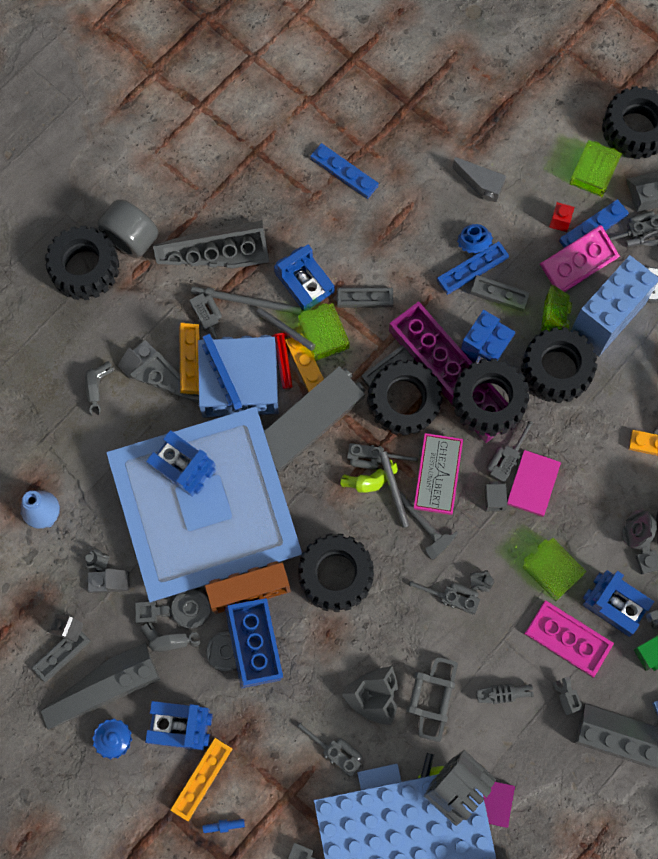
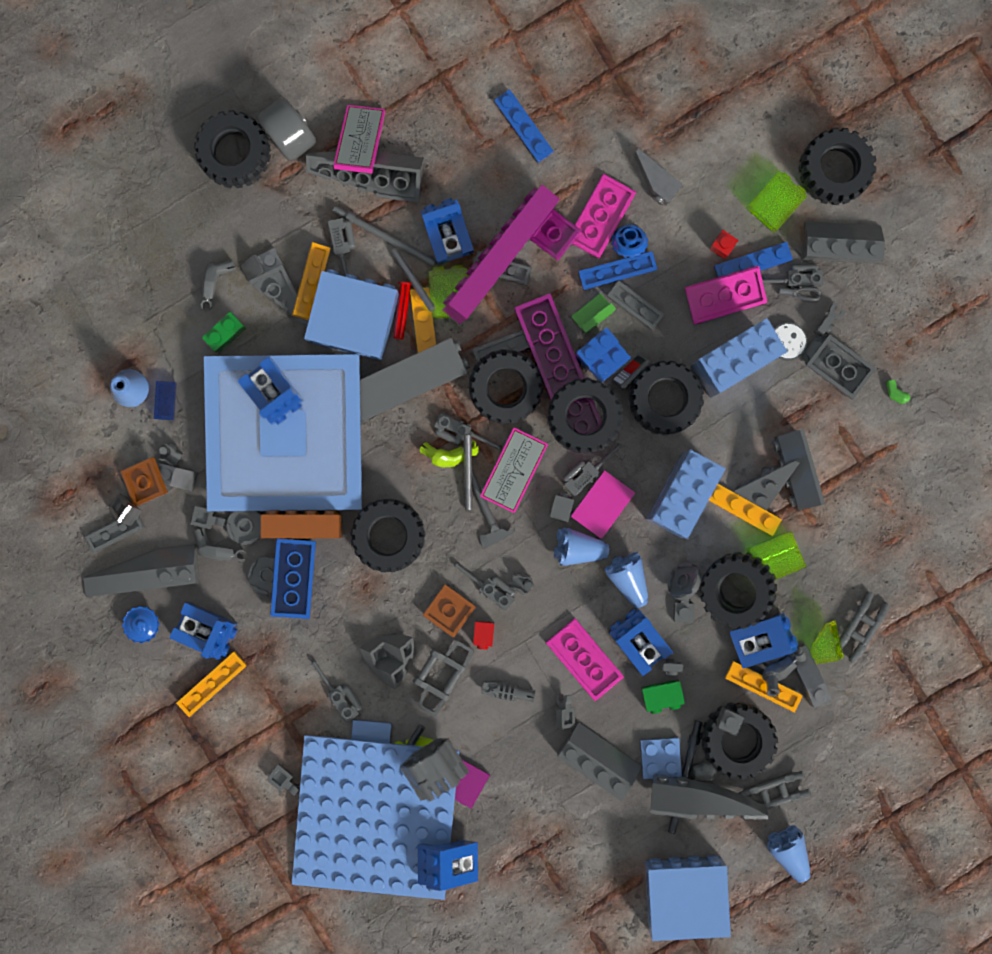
camera: 15 degrees right, 15 degrees up
(78, 510) = (165, 400): none -> clear blue plate
(78, 593) = (144, 482): none -> dark orange plate
(119, 428) = (224, 332): none -> green brick
(198, 220) = (359, 139): none -> light grey tile
(223, 826) = (220, 730): blue bar -> none
(224, 379) = (334, 321): blue plate -> none
(359, 280) = (503, 250): none -> magenta brick
(404, 253) = (555, 235): none -> magenta tile
(419, 630) = (449, 610): none -> dark orange plate
(440, 227) = (602, 215): none -> dark pink tile
(461, 643) = (483, 634): none -> red brick
(463, 312) = (593, 313): none -> bright green panel
(518, 350) = (630, 371): none -> slope
(524, 529) = (578, 548): none -> medium blue cone
(553, 568) = (592, 592): clear neon green brick -> none
(556, 309) = (682, 343): clear neon green slope -> none
(585, 544) = (629, 578): none -> medium blue cone
(611, 443) = (685, 494): none -> medium blue brick

